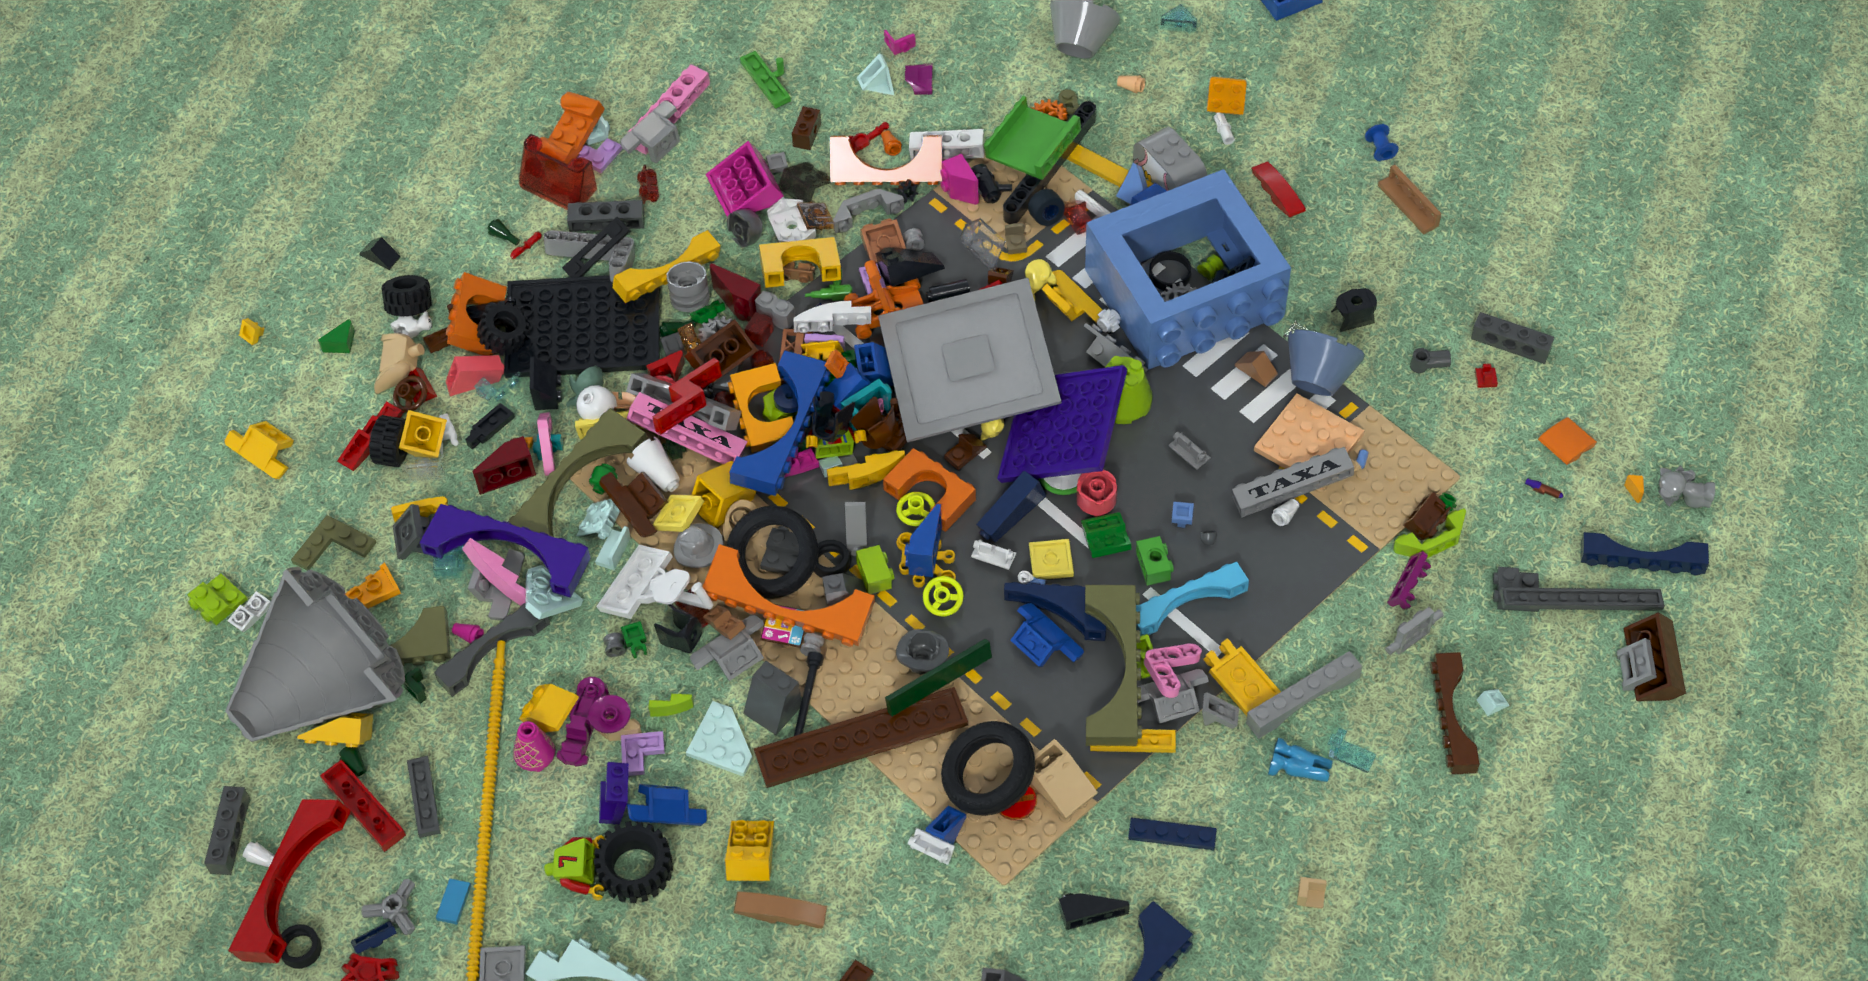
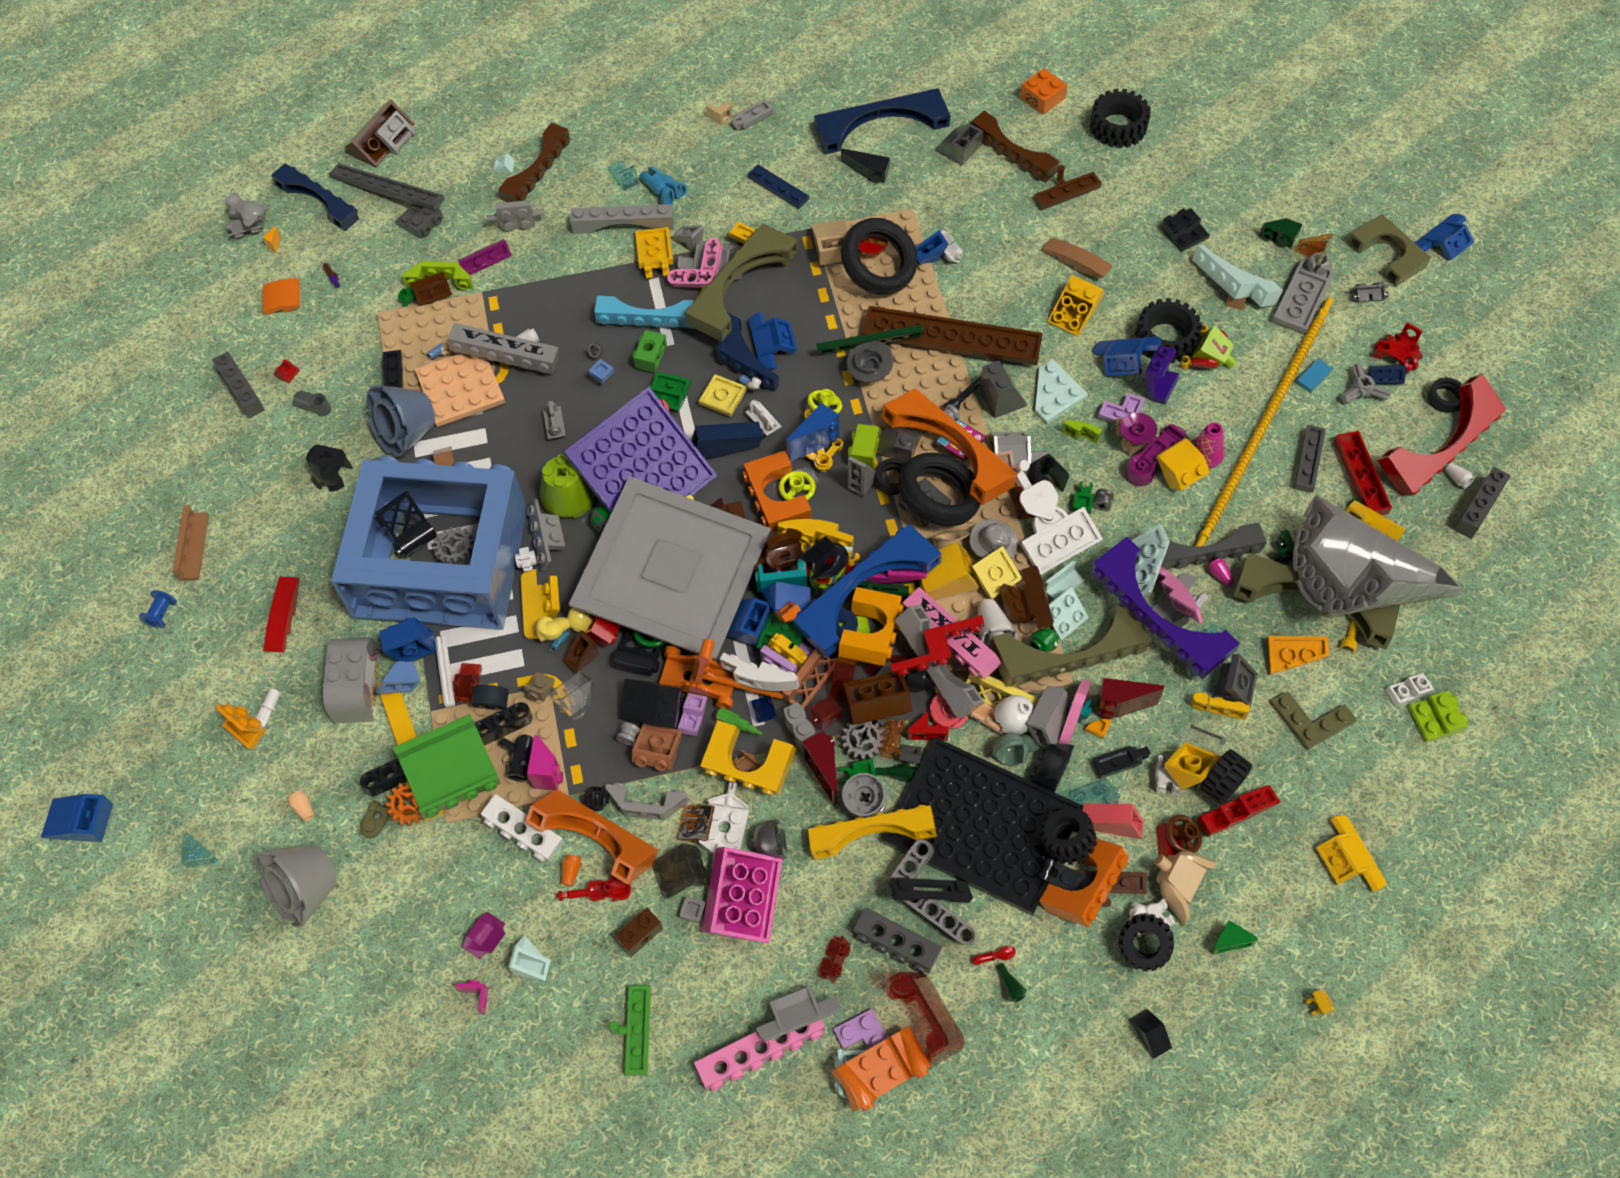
camera: 150 degrees left, 5 degrees up
(565, 412) = (1049, 716): none -> light grey slope
(1271, 912) = (752, 114): none -> light grey hinge
(1372, 409) = (393, 368): none -> black plate

